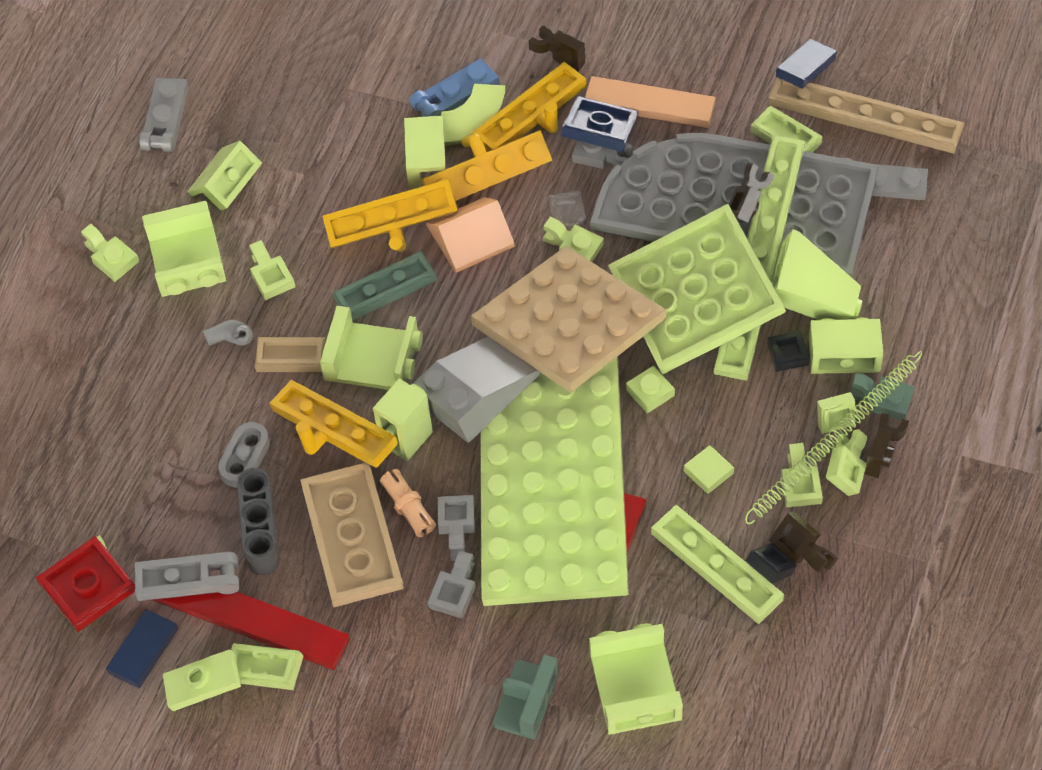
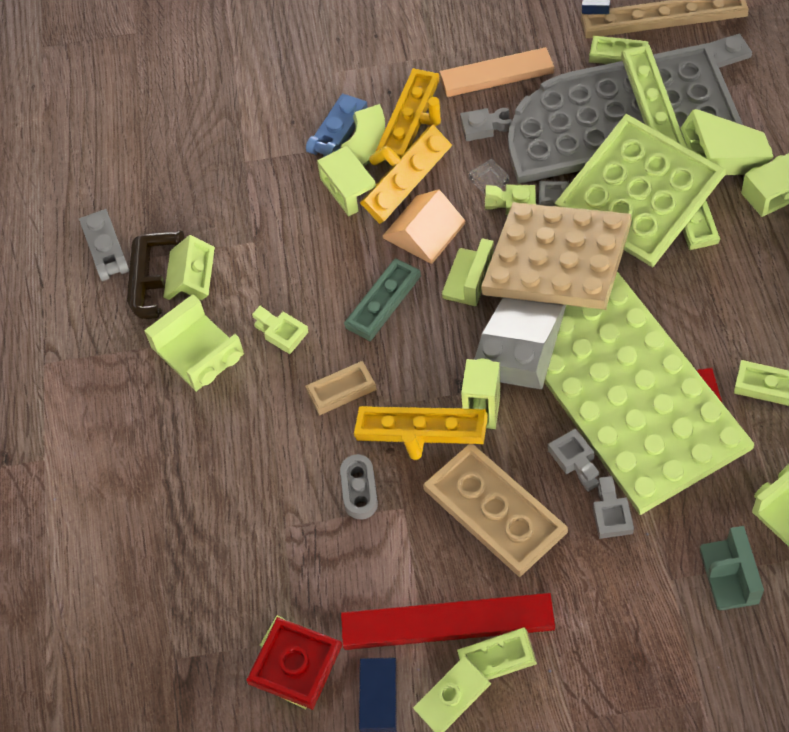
camera: 25 degrees left, 0 degrees up
(110, 257) = (130, 378): yellowish green plate -> none
(177, 161) = (139, 276): none -> dark brown piece
(186, 576) = (381, 612): light grey plate -> none
(229, 331) = (276, 392): light grey arm -> none
(263, 534) = (413, 549): dark grey beam -> none
(369, 353) = (410, 356): yellowish green panel -> none
(390, 215) = (355, 240): yellow plate -> none
(407, 503) = (524, 460): light nougat pin -> none
(476, 296) = (468, 274): none -> yellowish green panel
(563, 47) = (403, 58): dark brown plate -> none
(599, 123) = (473, 101): dark blue tile -> none
(613, 251) = (550, 191): none -> light grey tile
(650, 389) = (651, 283): yellowish green plate -> none
(708, 469) = (741, 322): yellowish green tile -> none
(745, 198) = (635, 100): plate -> none
(788, 351) = (734, 207): black tile -> none

